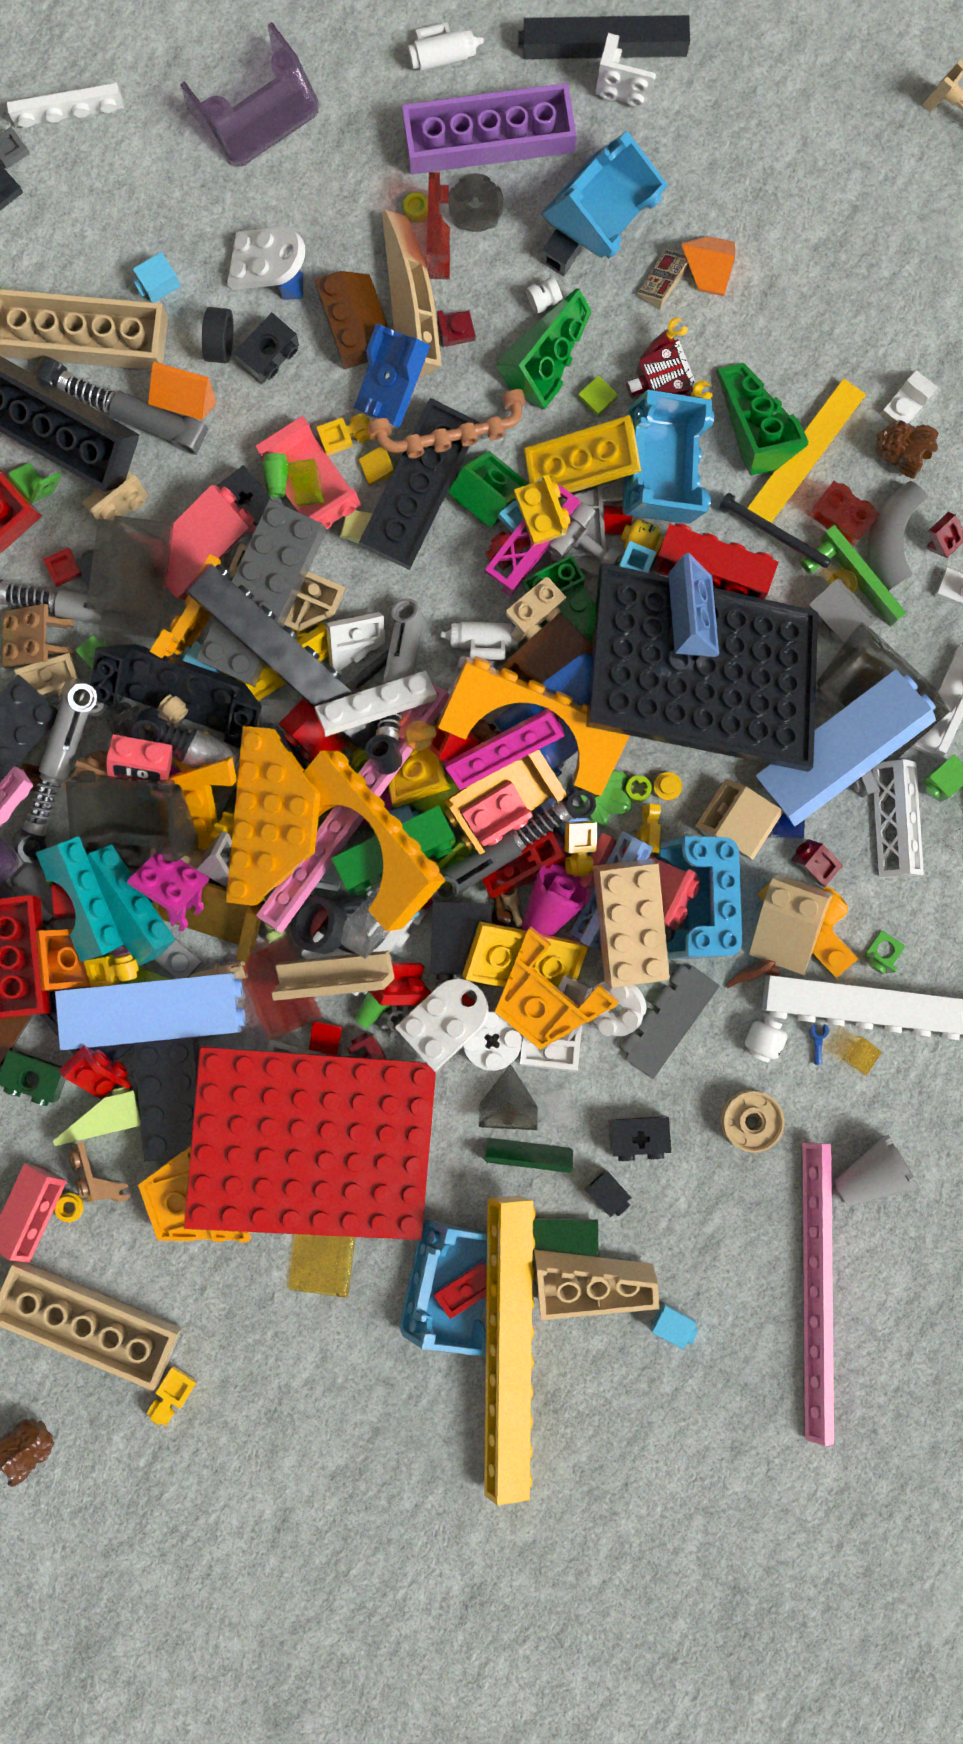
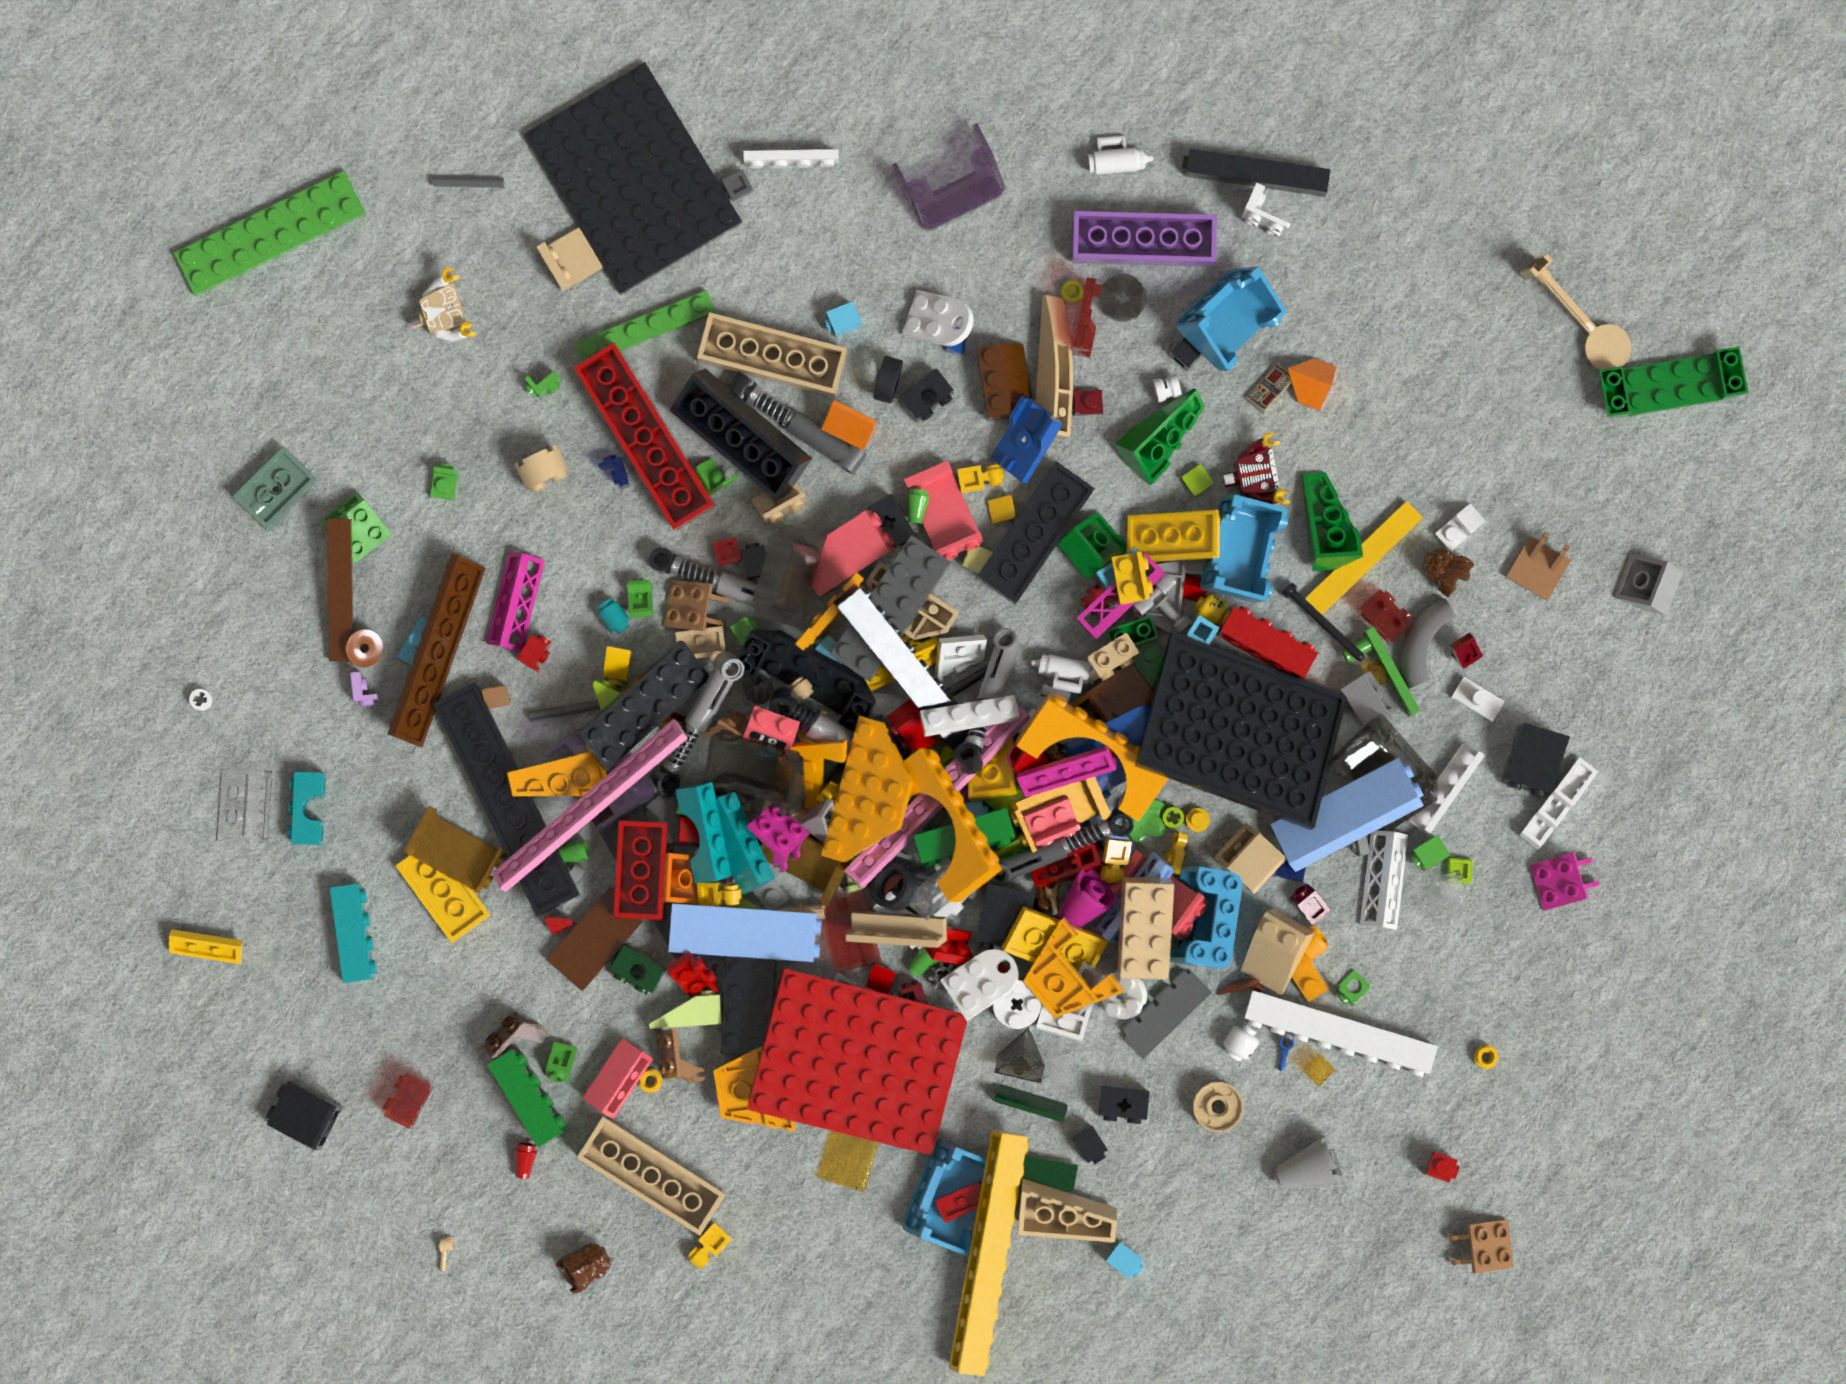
camera: 15 degrees right, 0 degrees up
(306, 482) = (941, 517): clear neon green panel -> none
(419, 735) = (1000, 747): clear yellow plate -> none
(441, 438) = (1059, 500): nougat bar -> none
(693, 608) = (1240, 682): medium blue slope -> none
(818, 1293) = (1246, 1253): bright pink plate -> none

